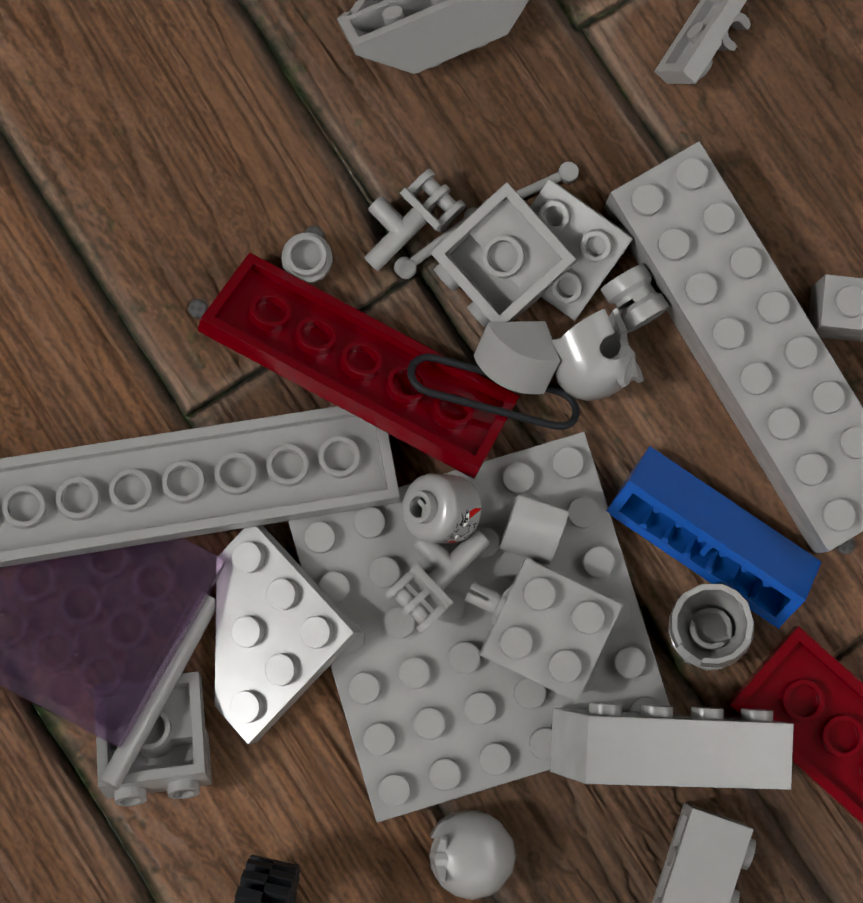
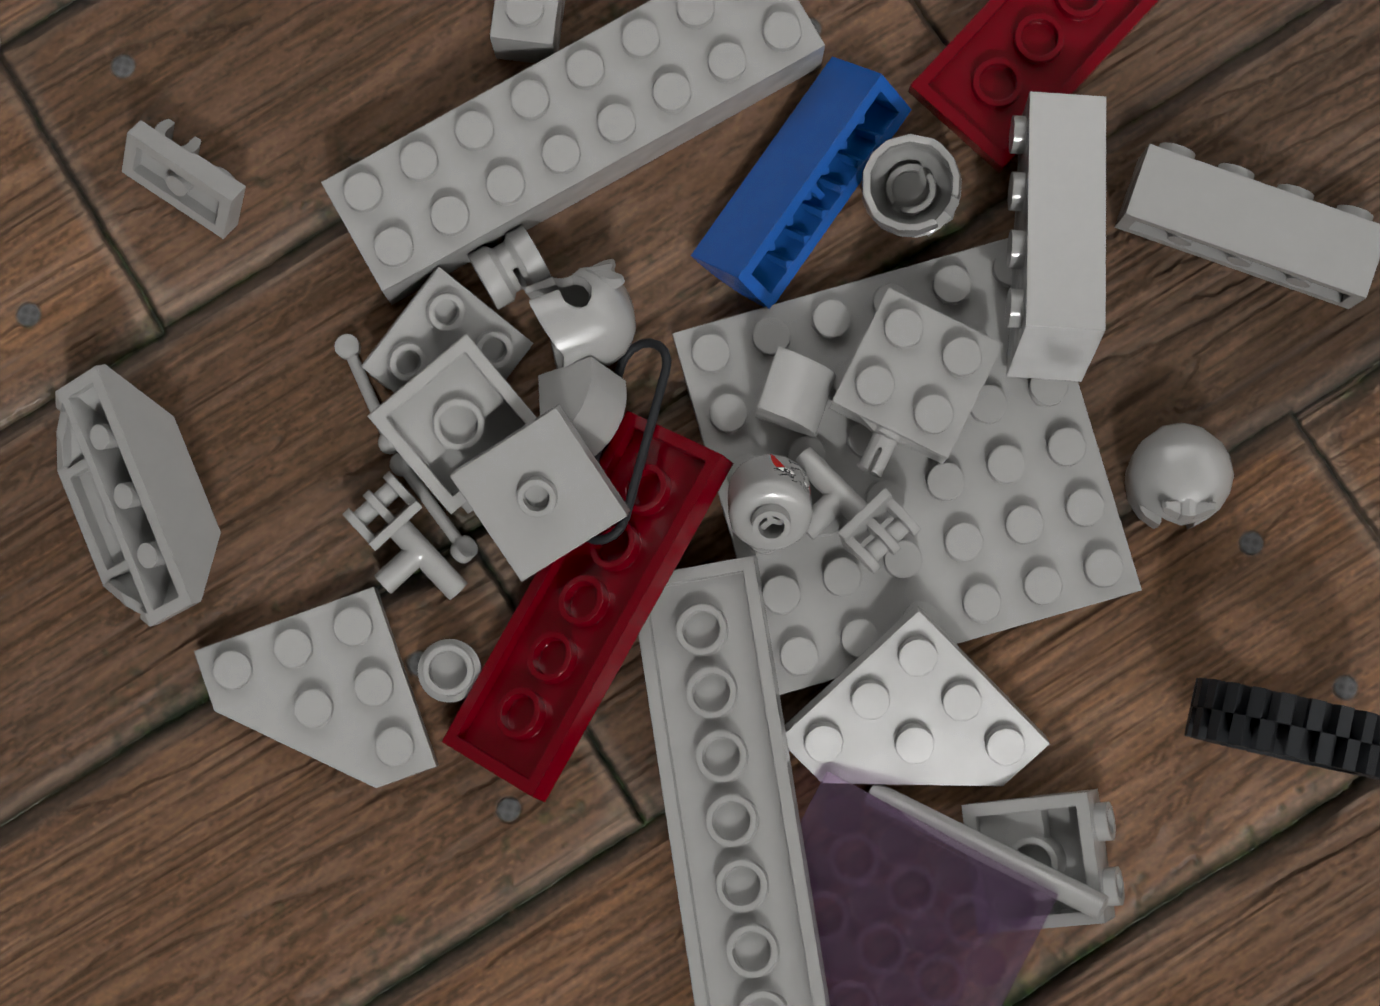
camera: 85 degrees left, 0 degrees up
(291, 162) = (325, 688): none -> light grey plate
(447, 322) = (540, 493): none -> light grey plate

